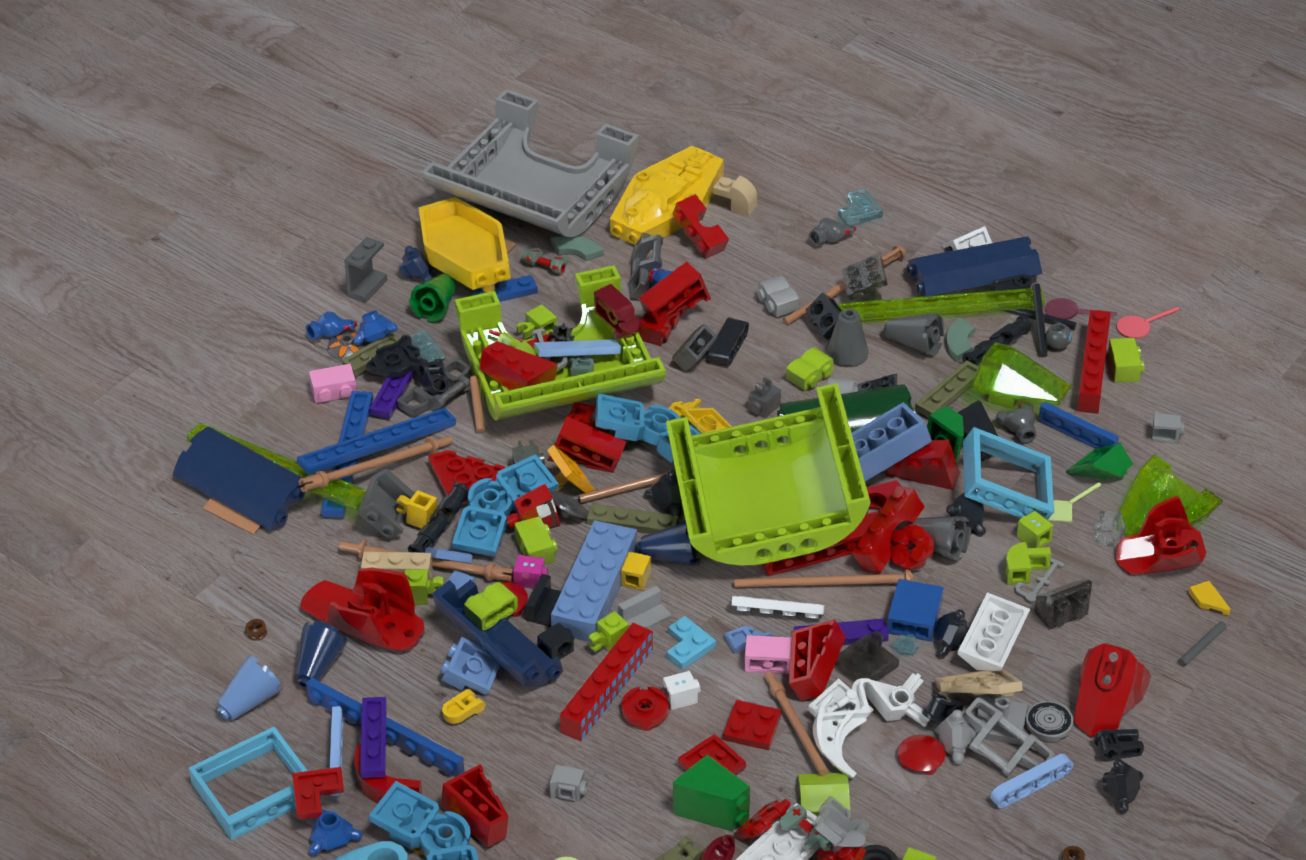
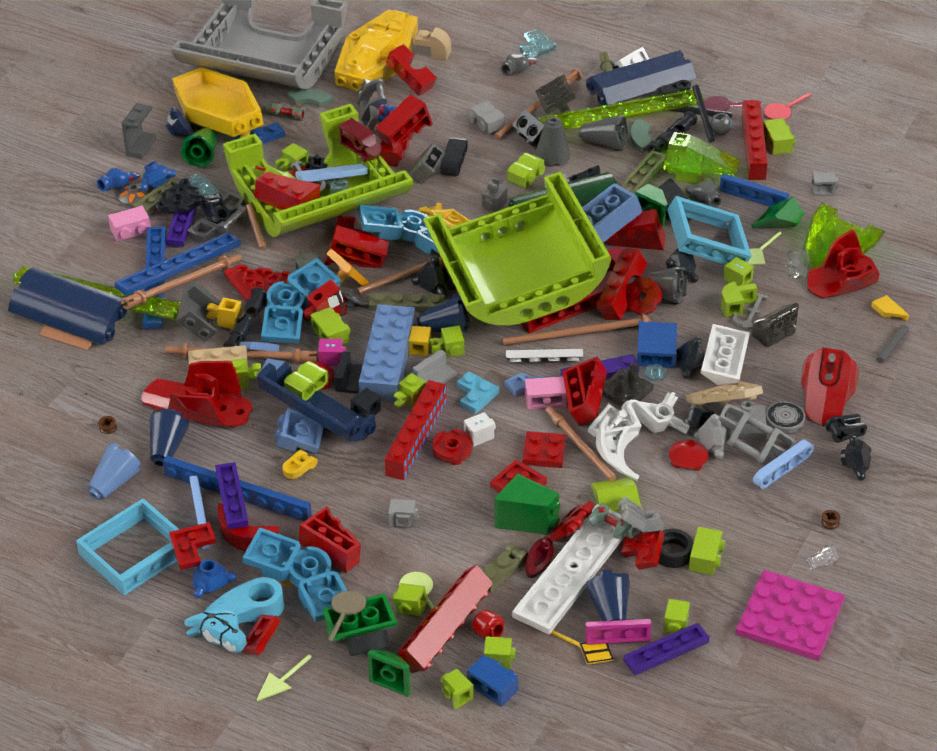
camera: 10 degrees left, 0 degrees up
(672, 576) = (450, 341): none -> lime brick
(937, 242) = (606, 63): none -> olive axle

